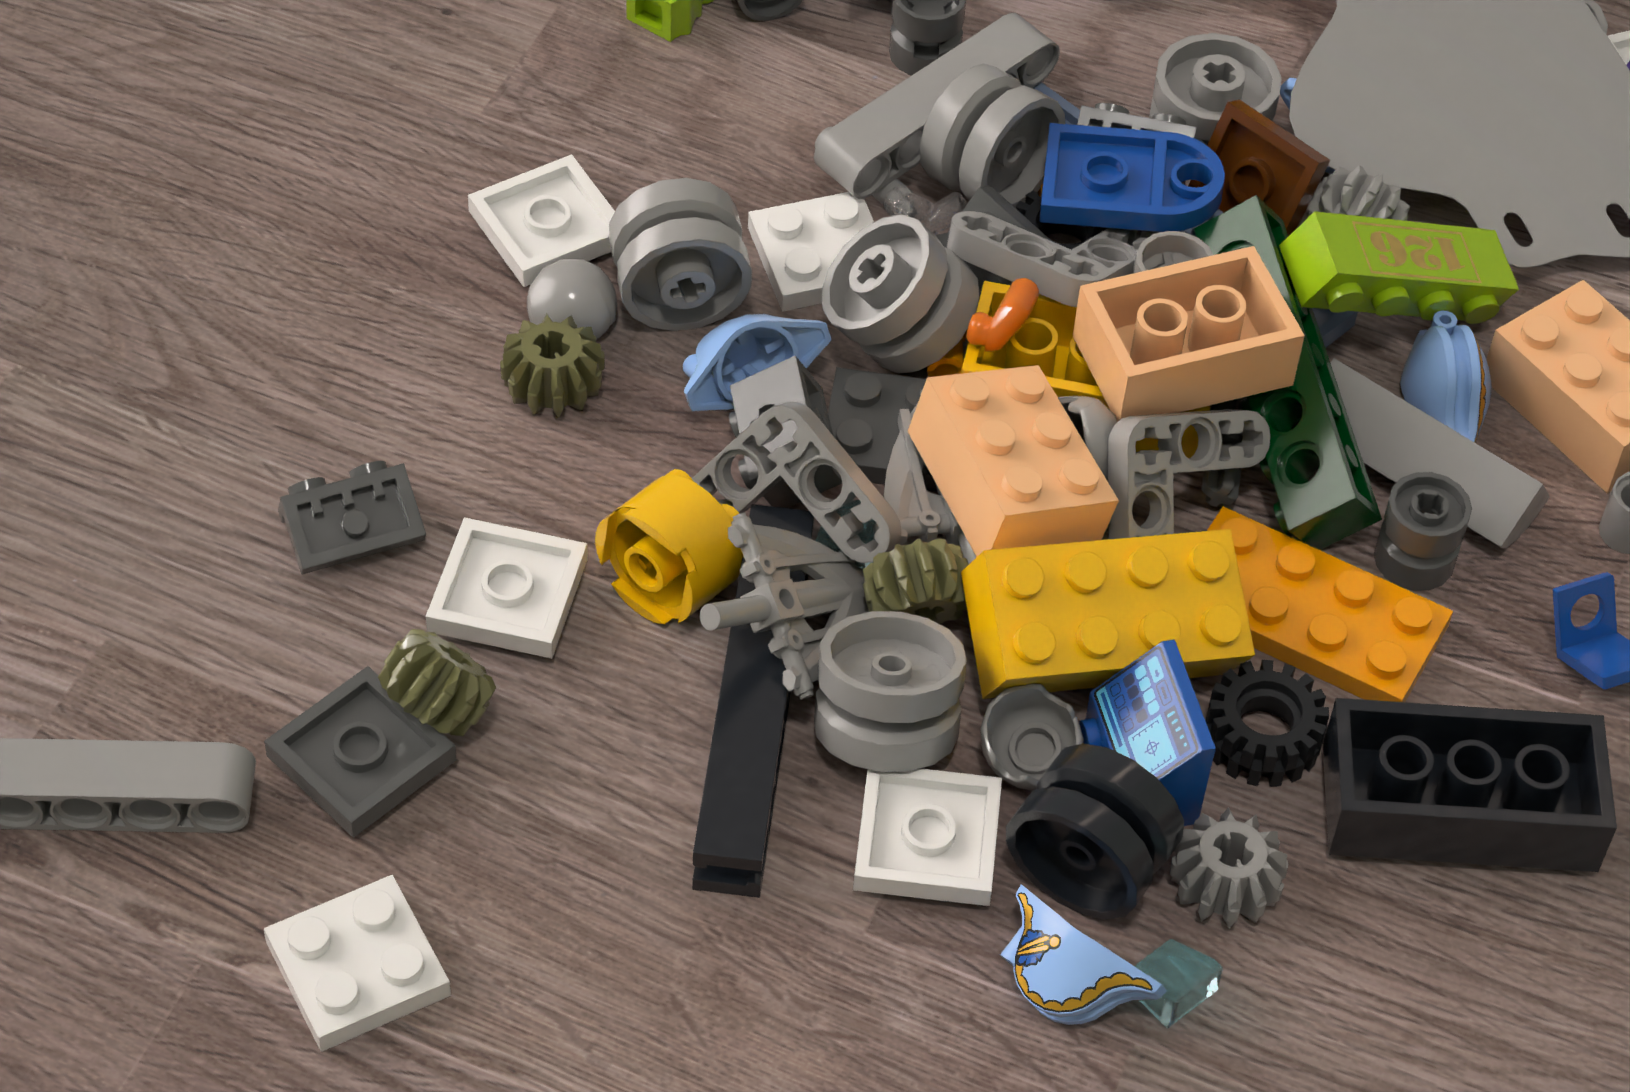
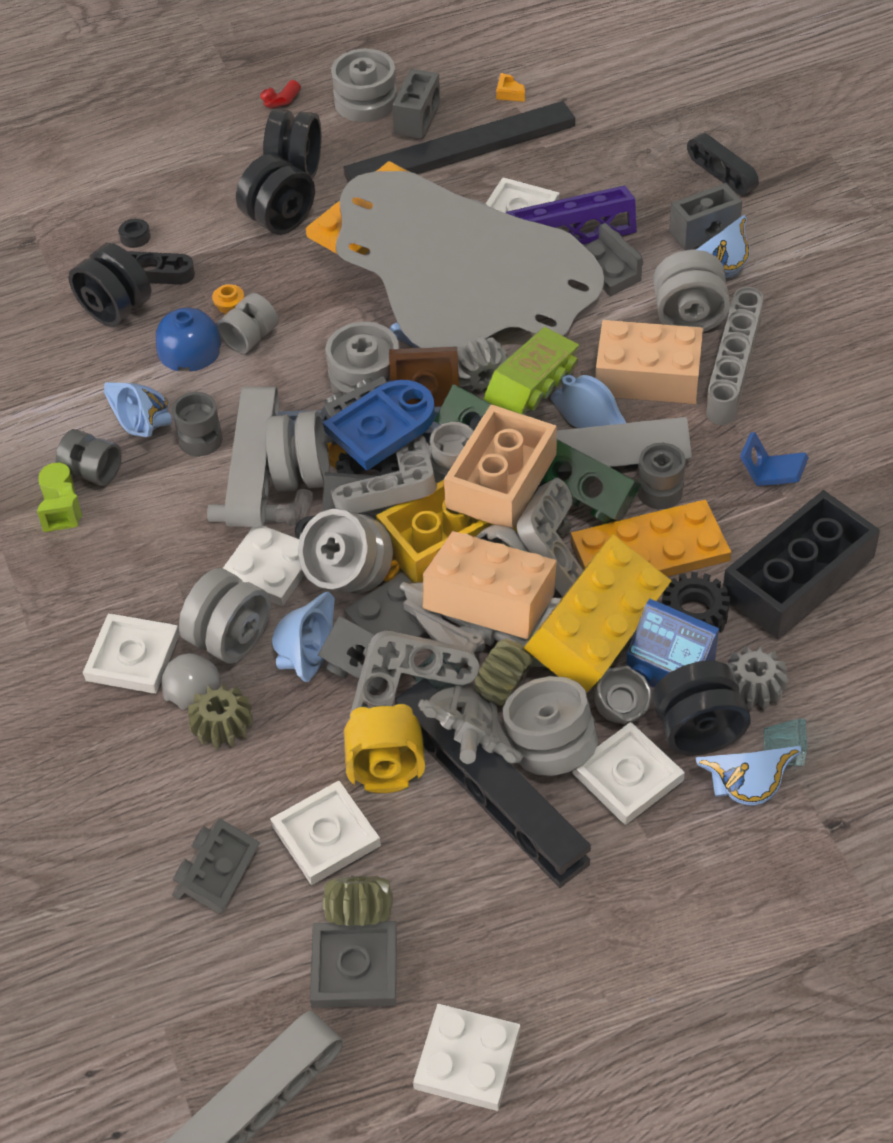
camera: 40 degrees left, 0 degrees up
(1009, 317) = (414, 522): orange arm -> none

